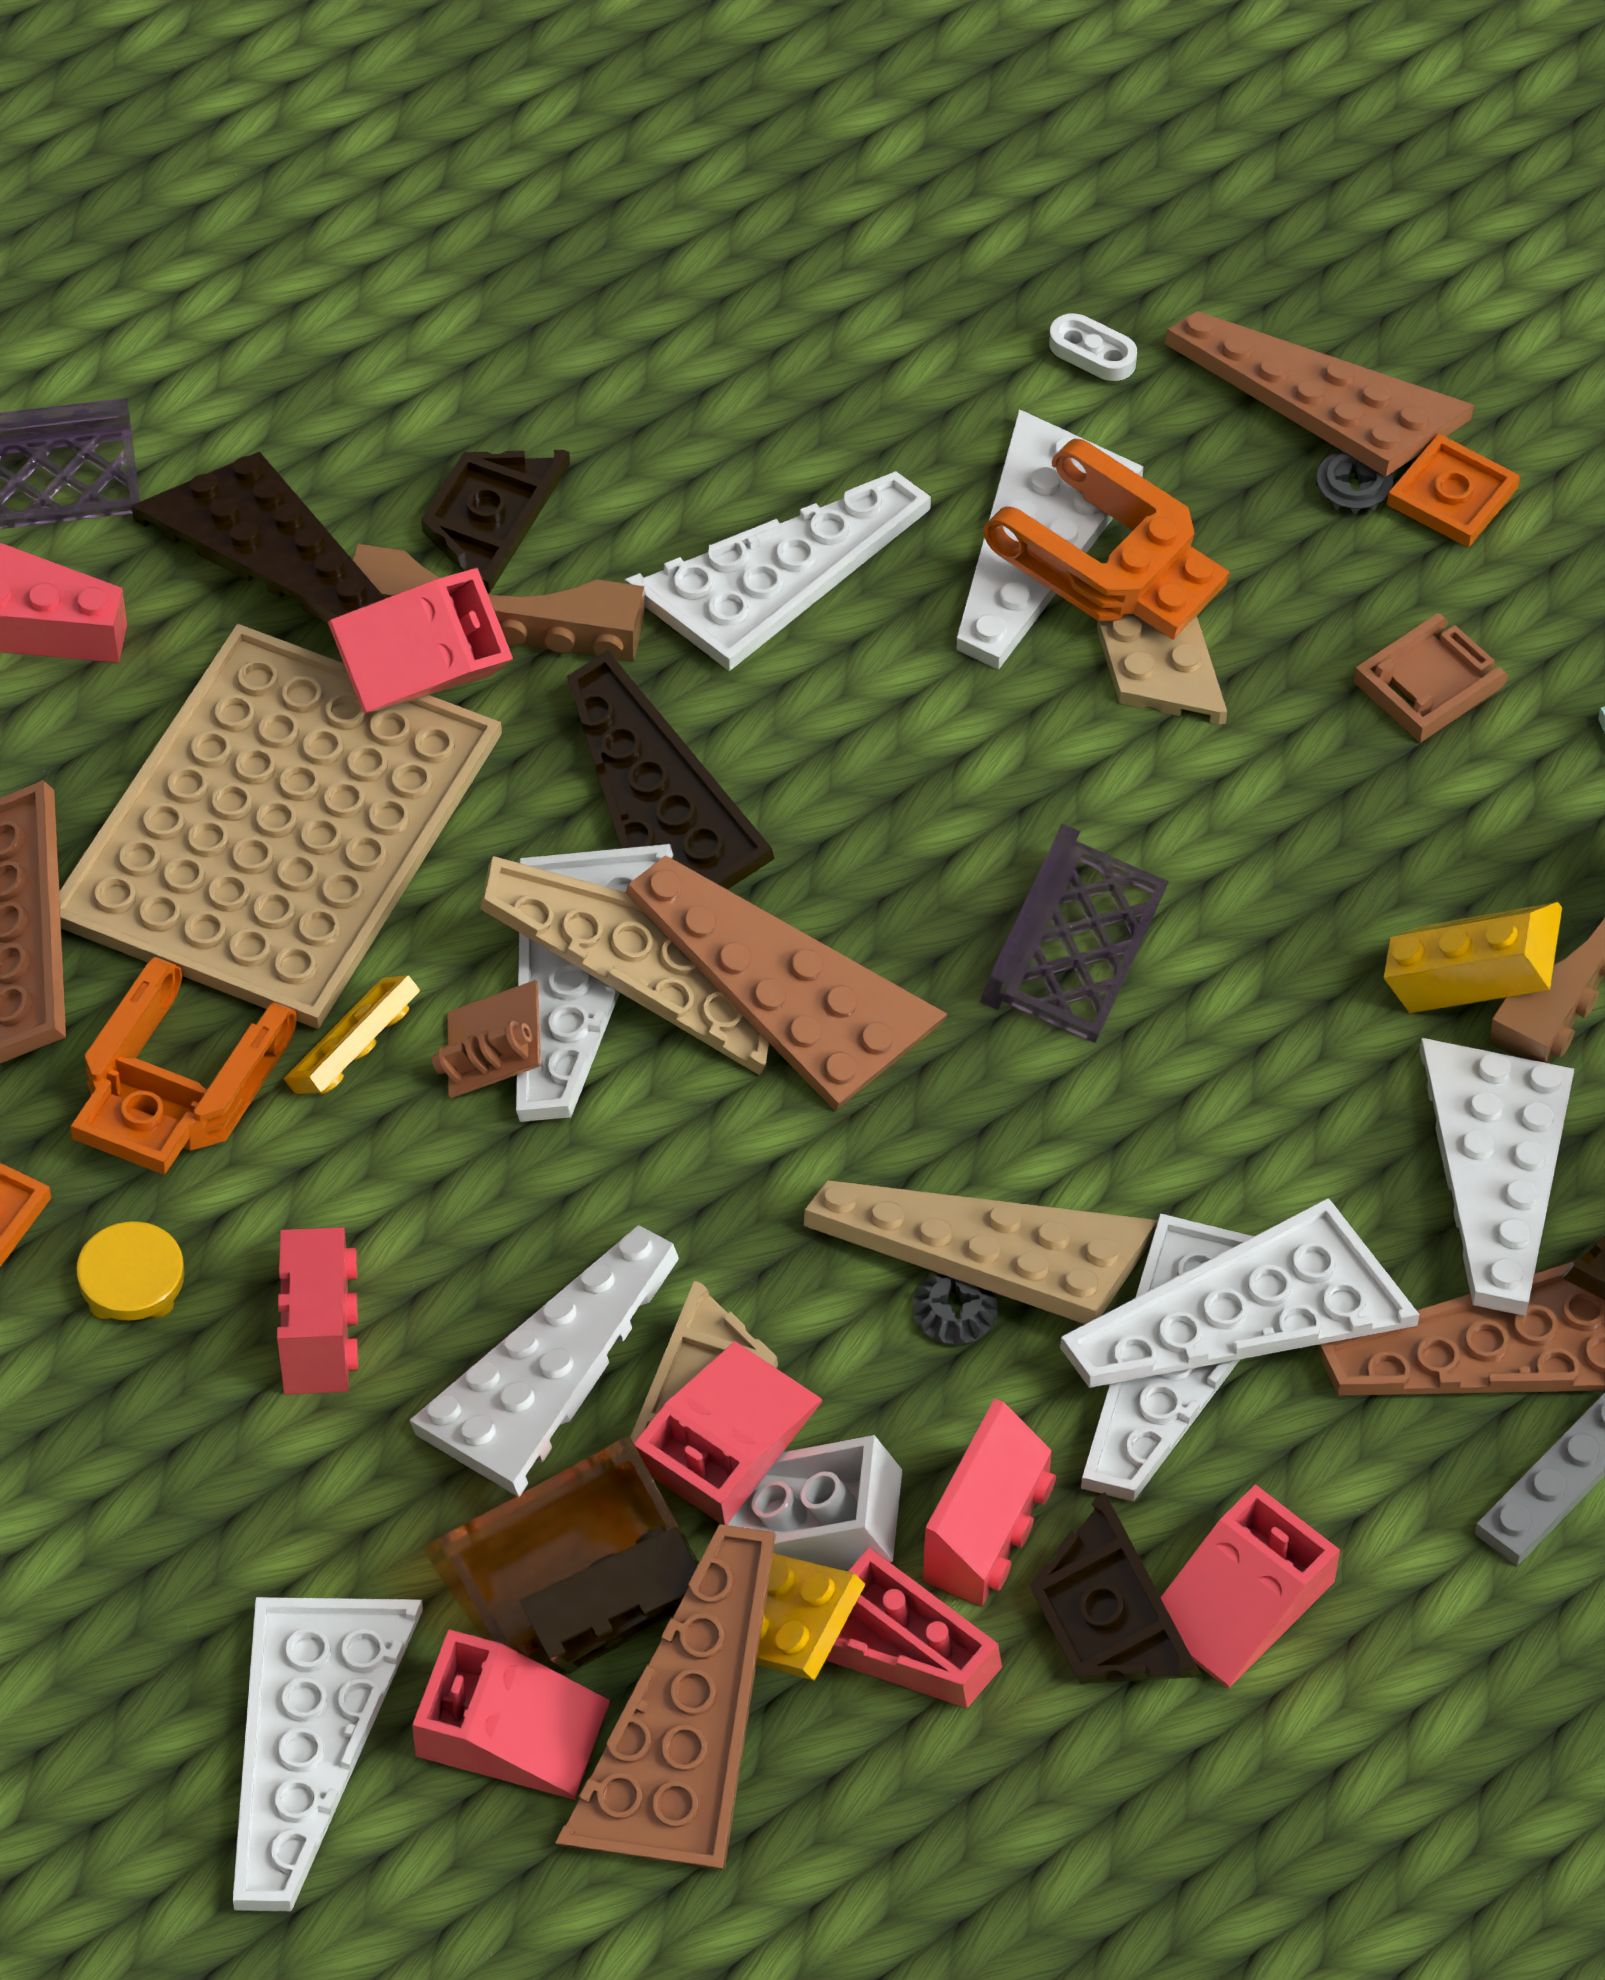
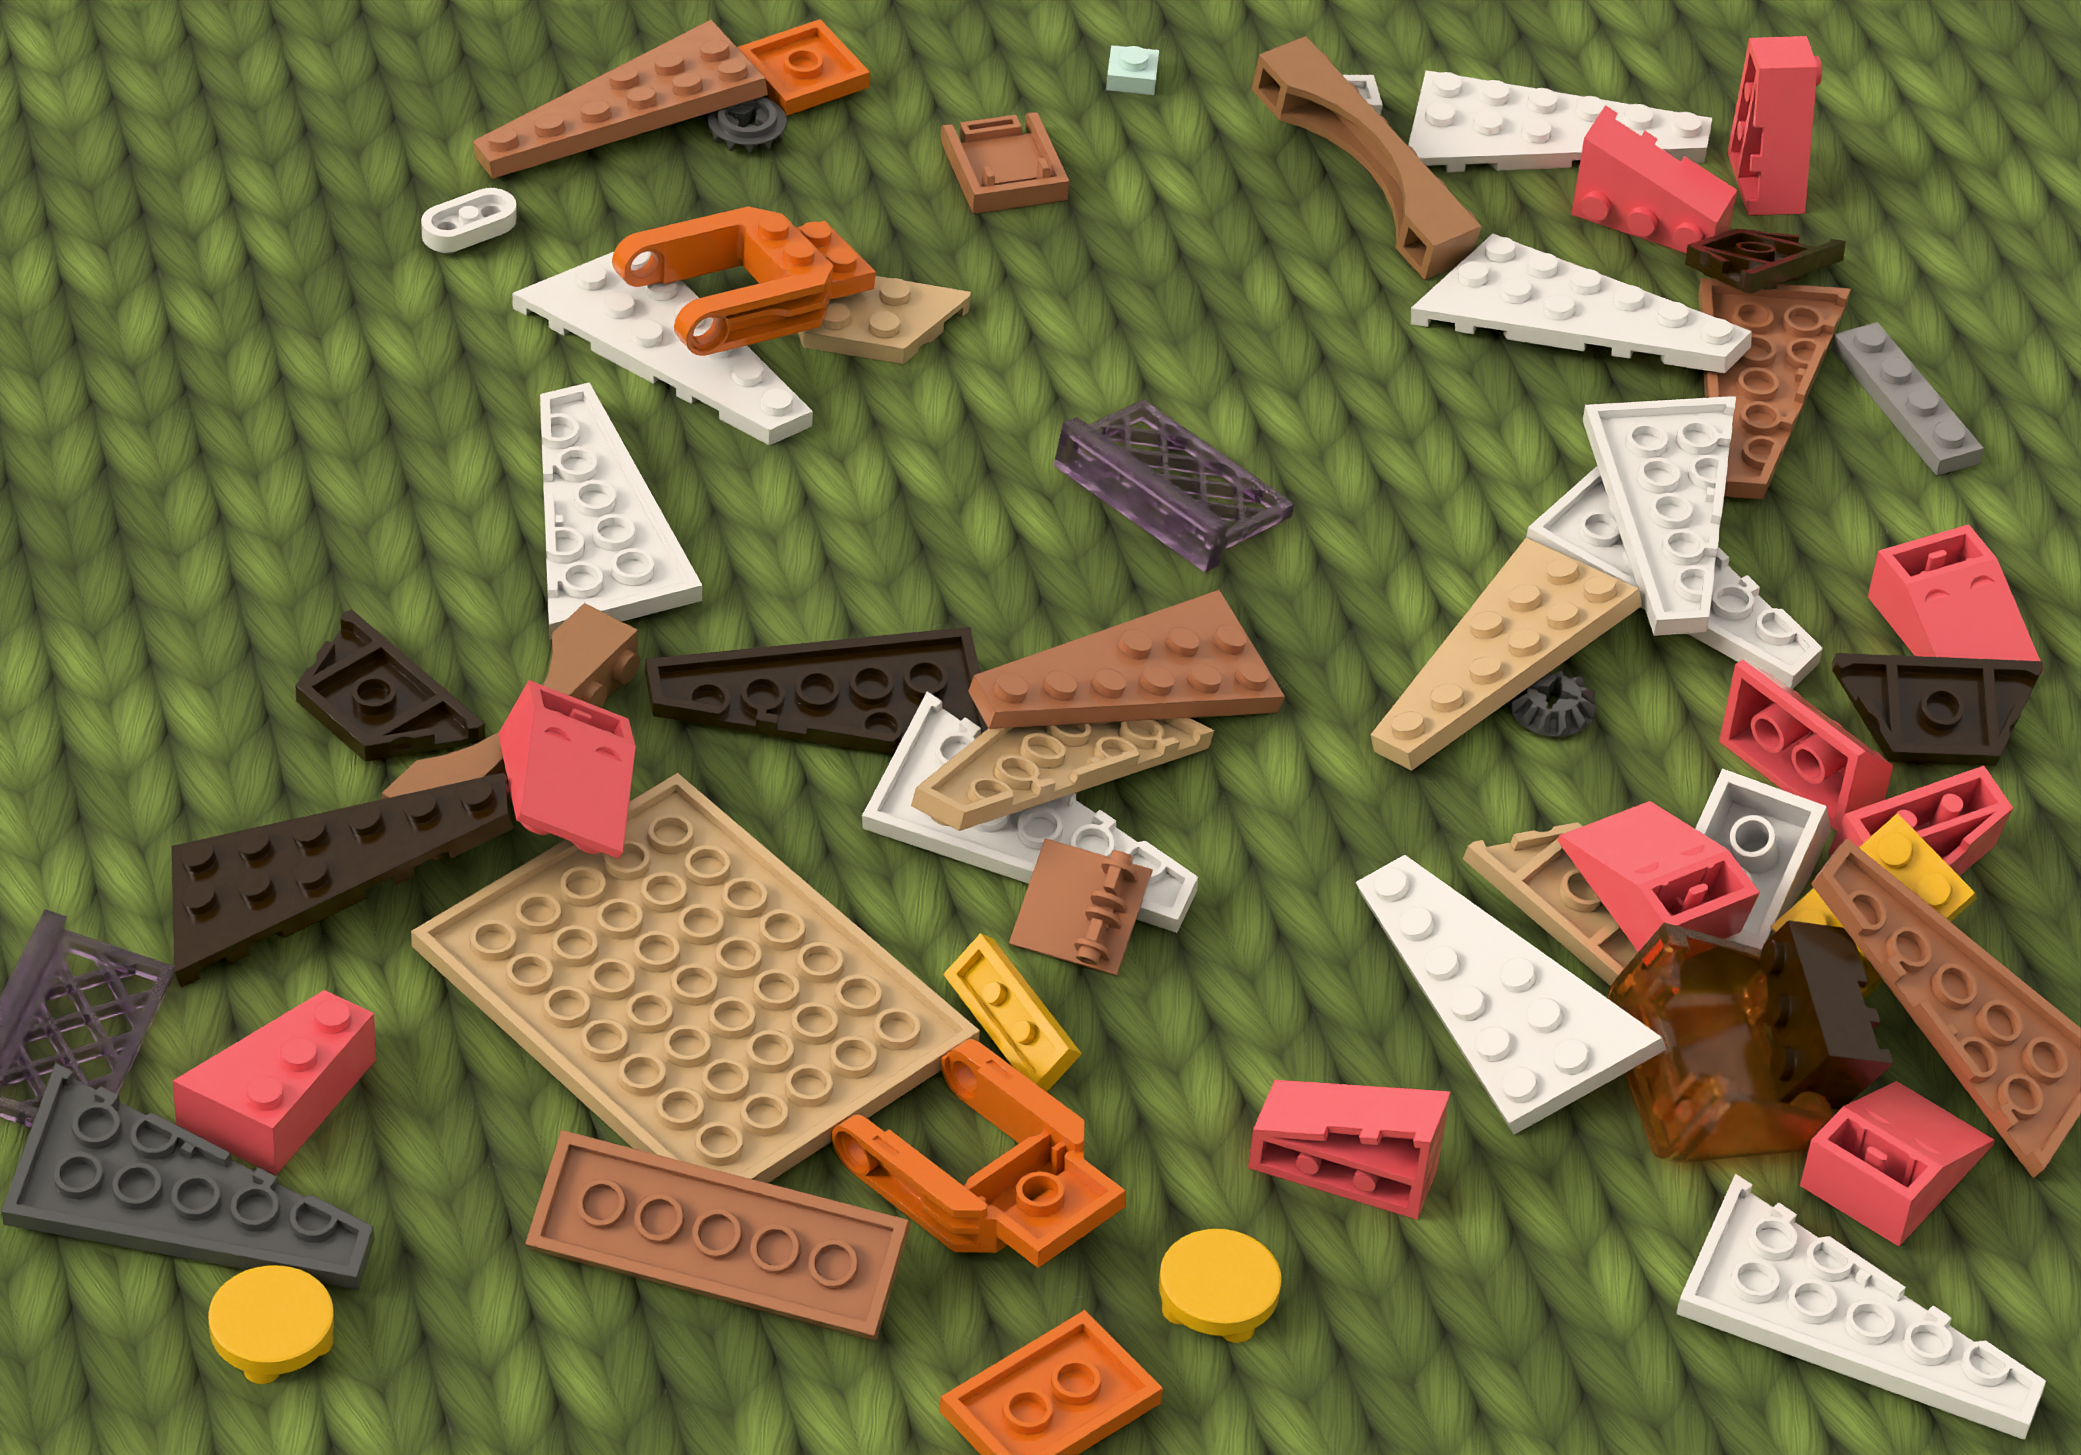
camera: 70 degrees left, 10 degrees down
(1474, 958) = (1363, 225): yellow slope -> none

